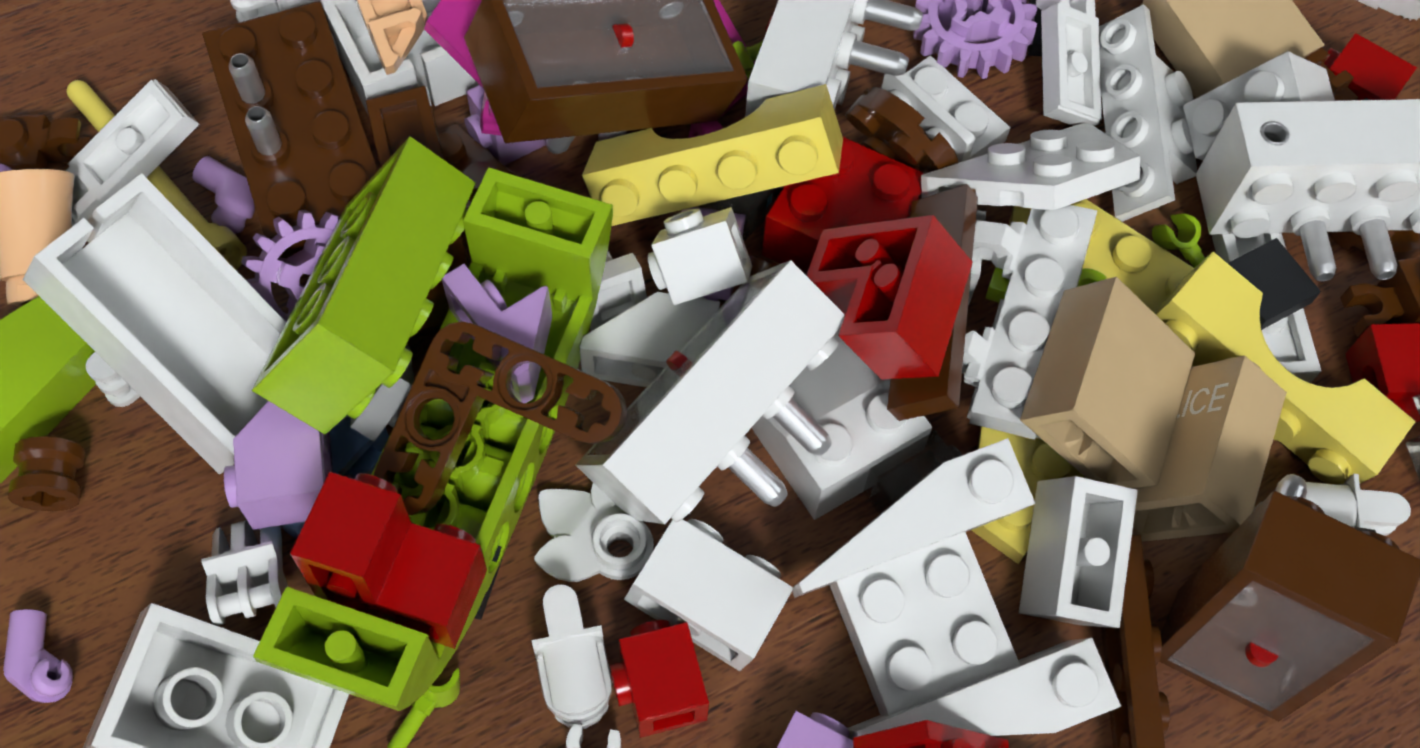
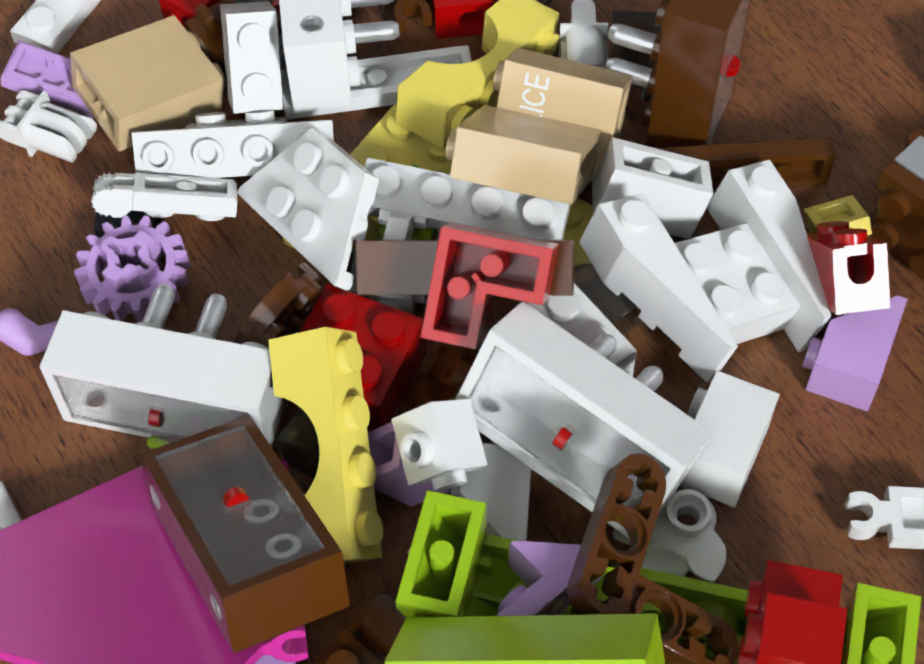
camera: 90 degrees left, 5 degrees down
(572, 662) = (798, 535): white arm -> none
(660, 678) = (799, 469): red brick -> none
(948, 109) = (242, 281): white bracket -> none
(1188, 236) = (351, 126): lime hand -> none
(1279, 278) = (393, 65): black piece -> none

